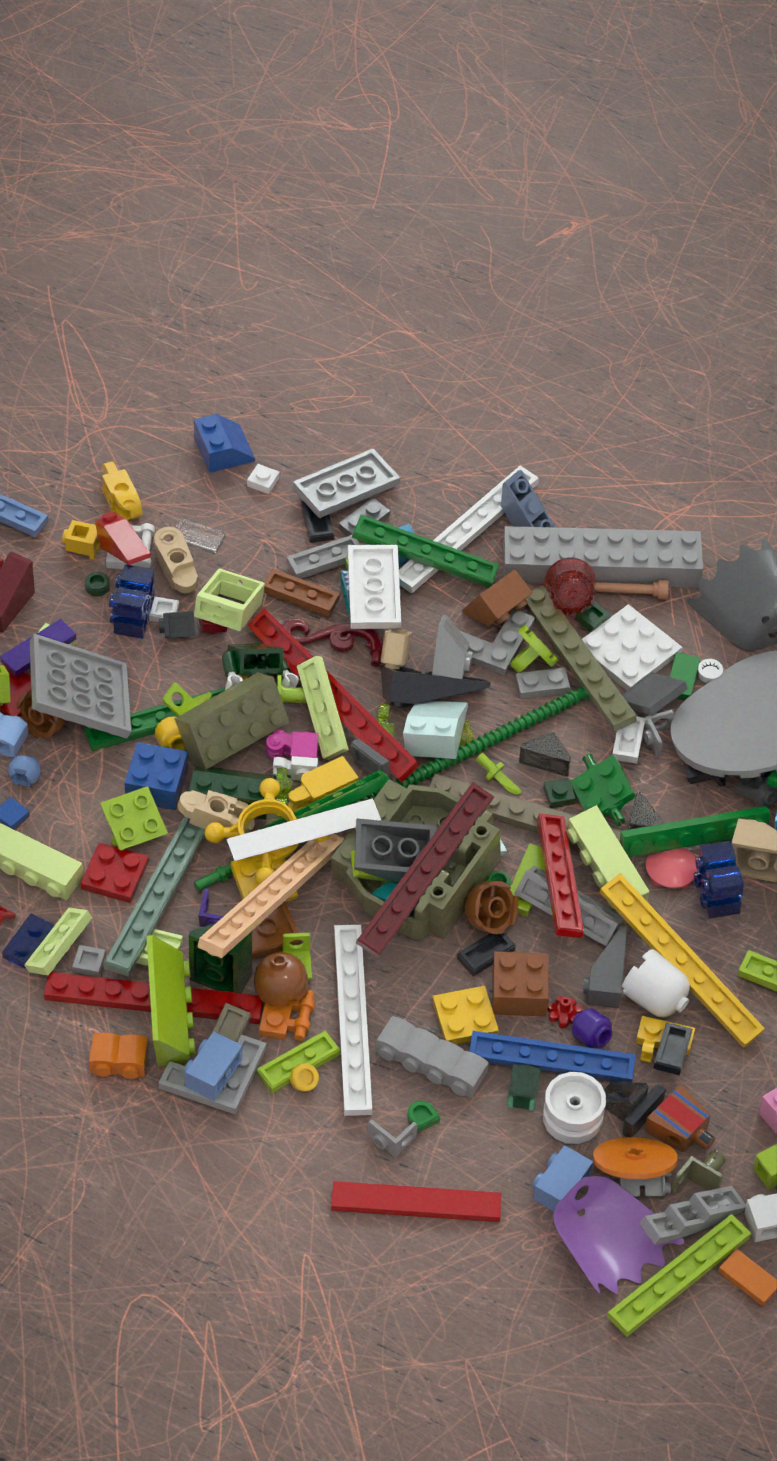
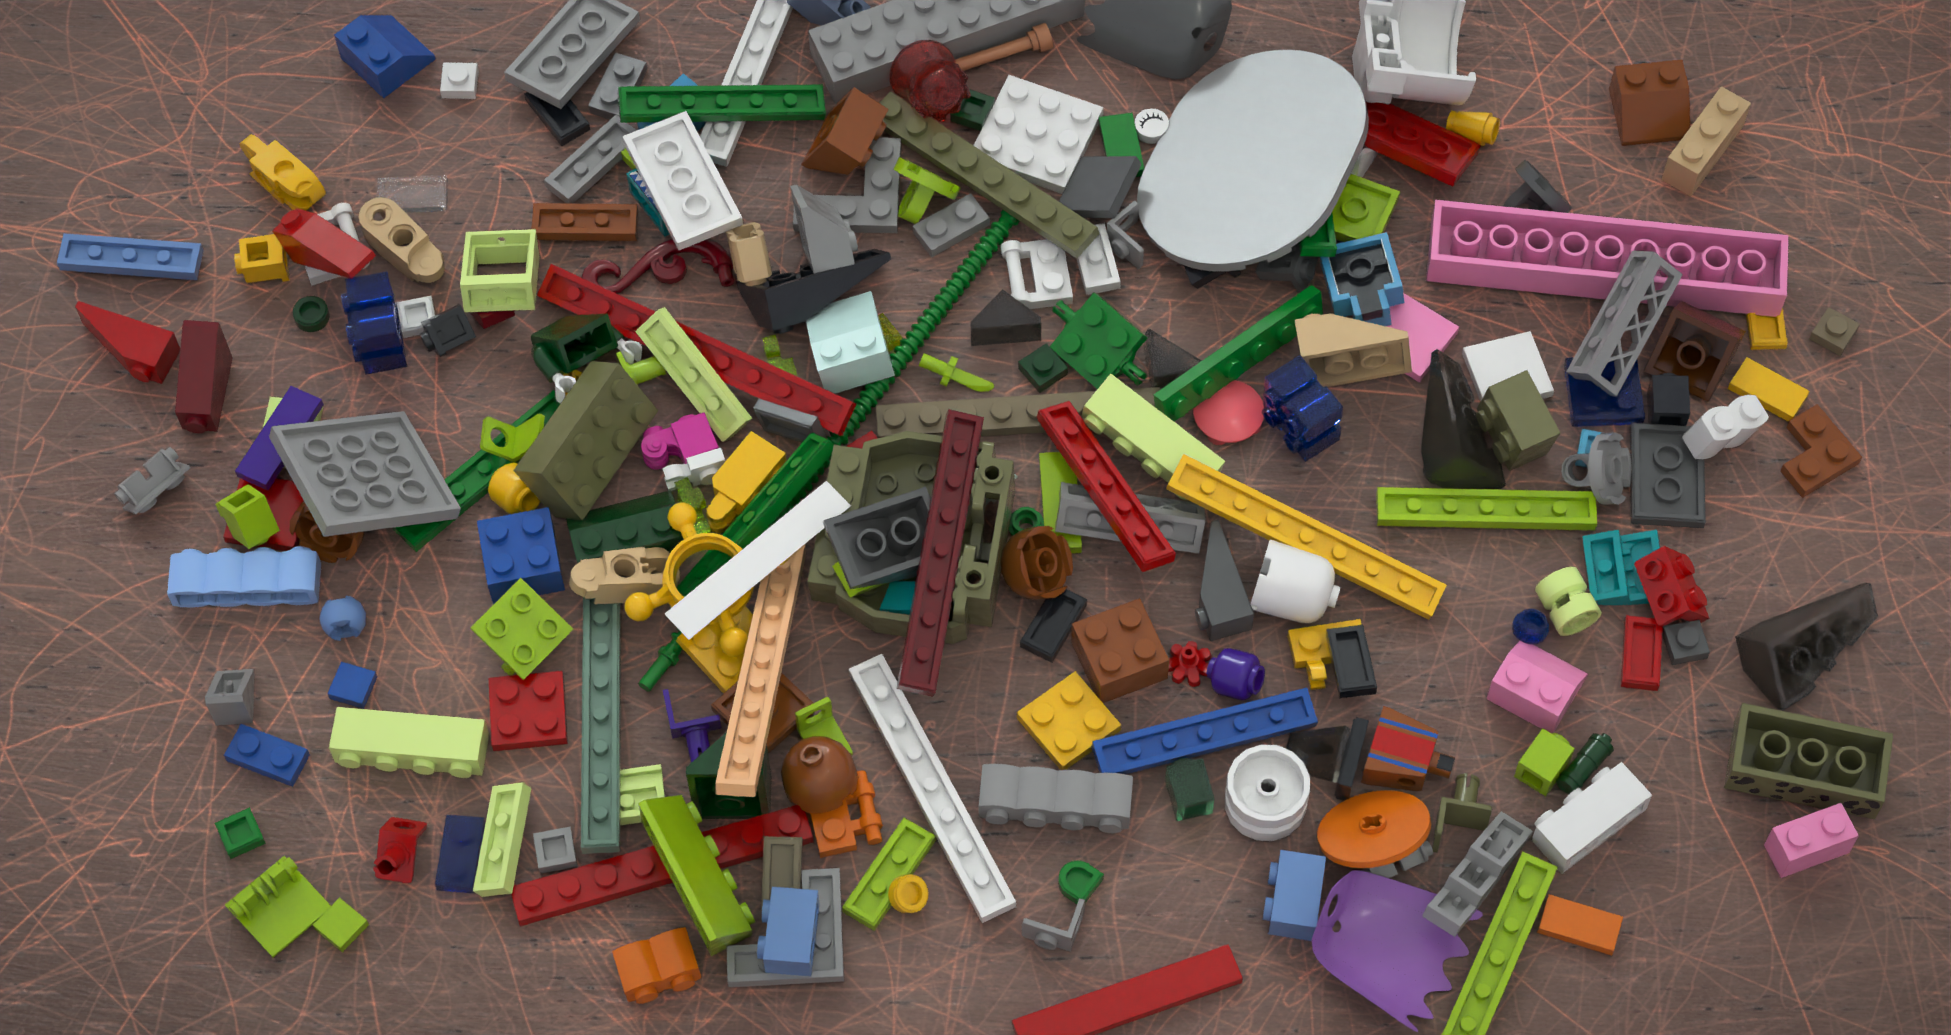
camera: 20 degrees left, 10 degrees up
(593, 735) = (1048, 272): none -> white plate

